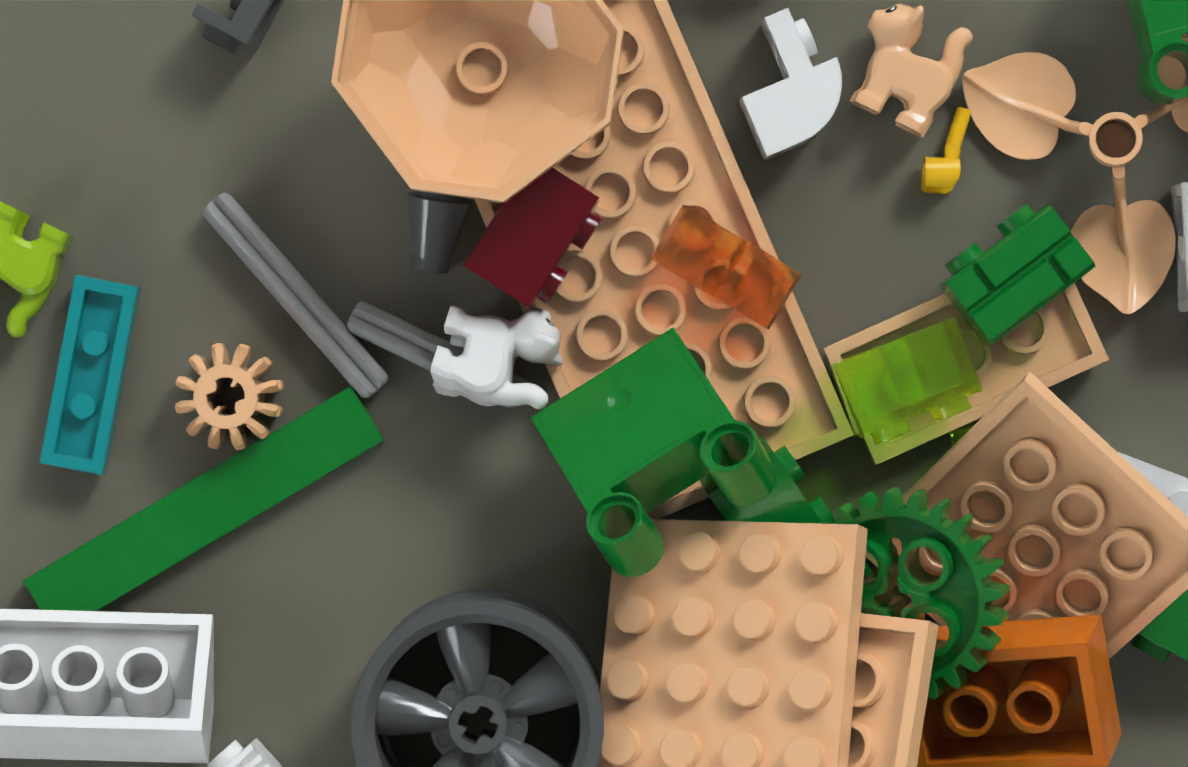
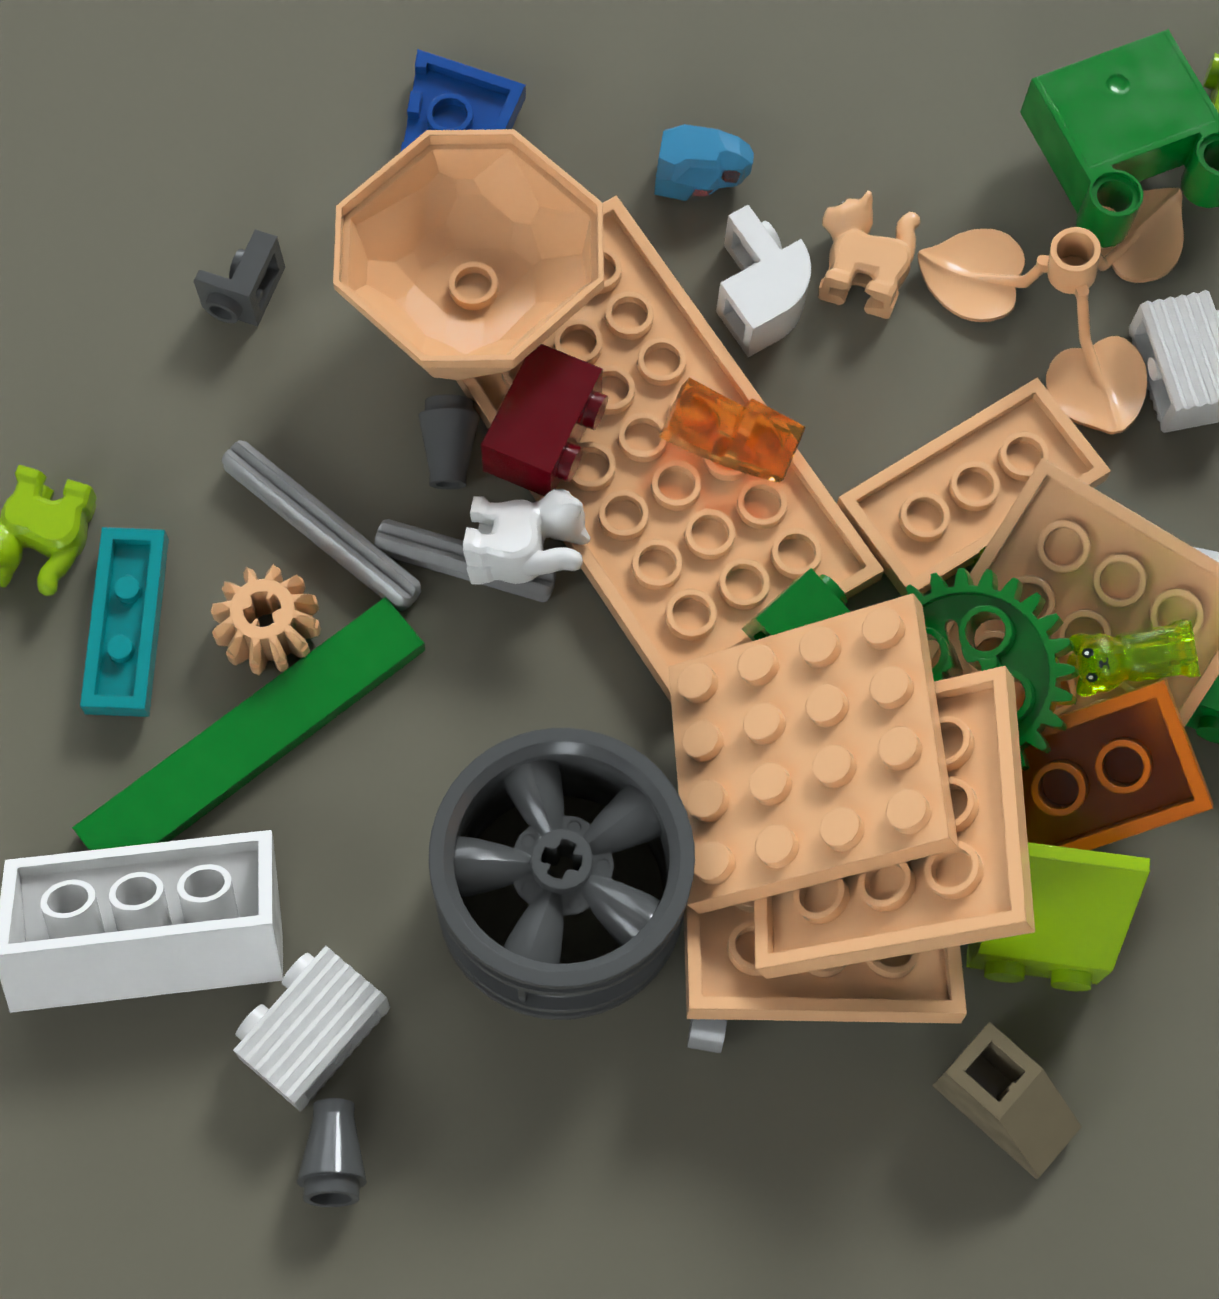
camera: 15 degrees left, 20 degrees down
(642, 439) = (688, 568): green piece -> none
(905, 380) = (924, 501): clear neon green brick -> none
(940, 173) = (915, 339): yellow hand -> none
(1016, 273) = (1007, 396): green brick -> none
(1071, 599) = (1133, 656): none -> clear neon green animal

